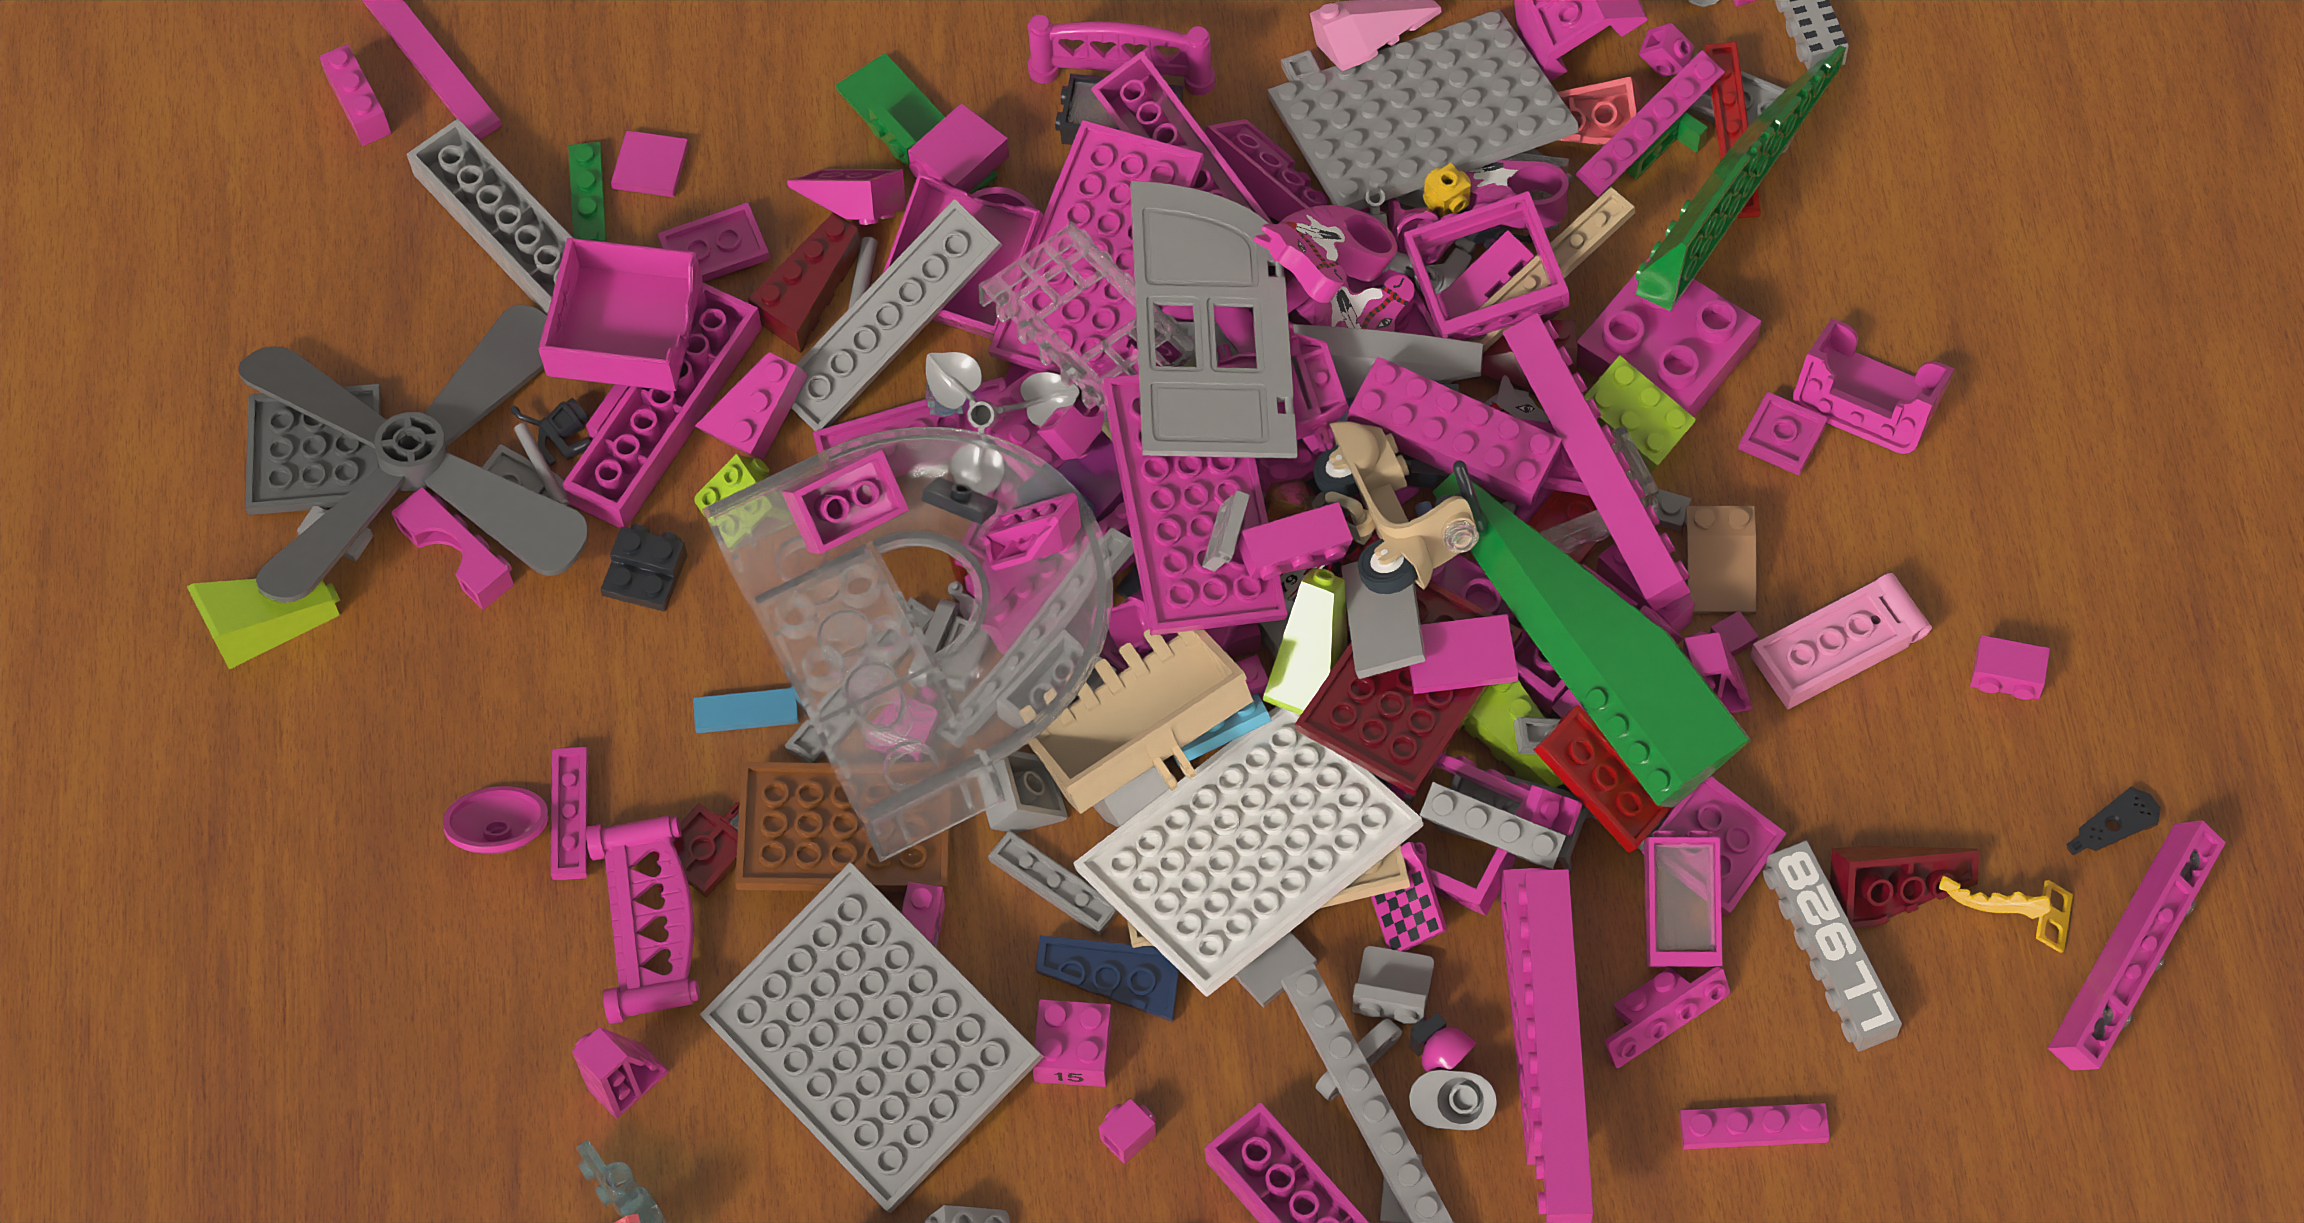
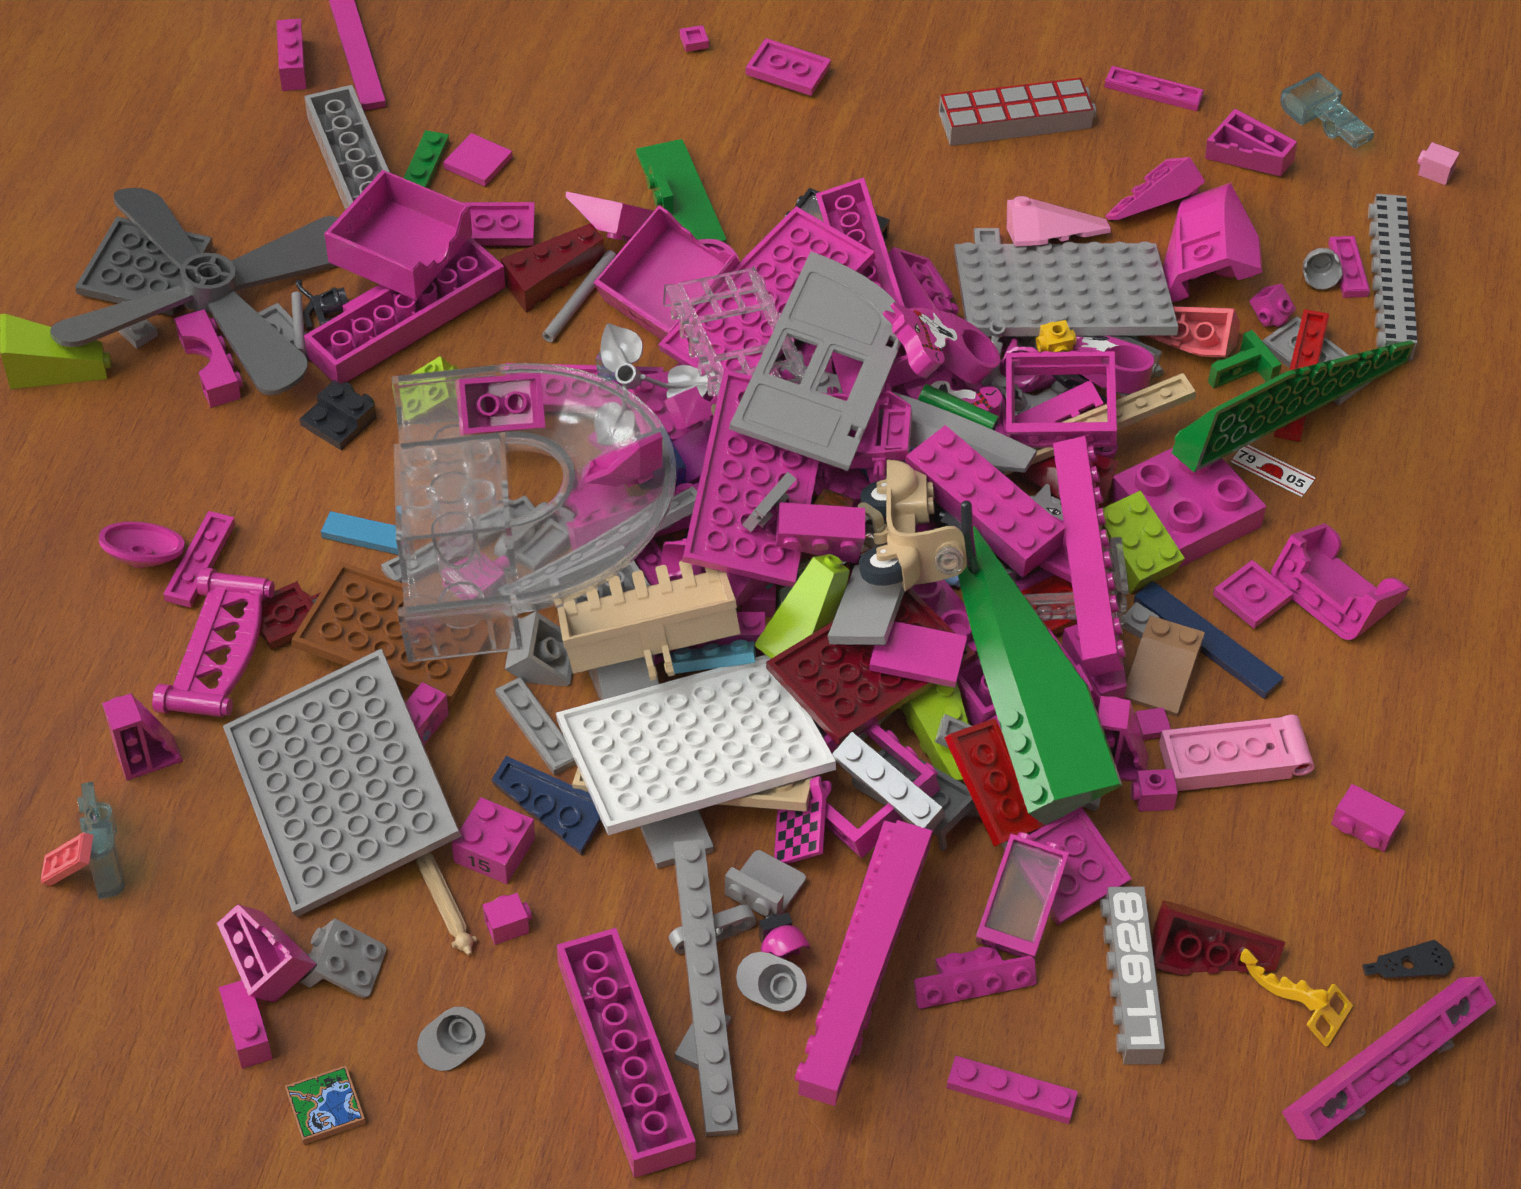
camera: 15 degrees right, 10 degrees down
(755, 406) = (471, 330): dark pink wedge -> none
(891, 314) = (594, 298): light grey plate -> none
(959, 150) = (705, 211): dark pink brick -> none
(959, 500) = (585, 430): black plate -> none
(1050, 52) = (802, 173): dark pink piece -> none
(1053, 1139) = (445, 903): none -> tan wheel
(1371, 318) = (958, 406): none -> green piece
(1551, 810) = (941, 788): dark pink bracket -> none
(1649, 123) = (1237, 345): dark pink plate -> none
(1750, 265) = (1273, 470): none -> white sticker
(1769, 717) = (1154, 790): none -> dark pink brick
(1770, 511) = (1215, 643): none -> dark blue tile

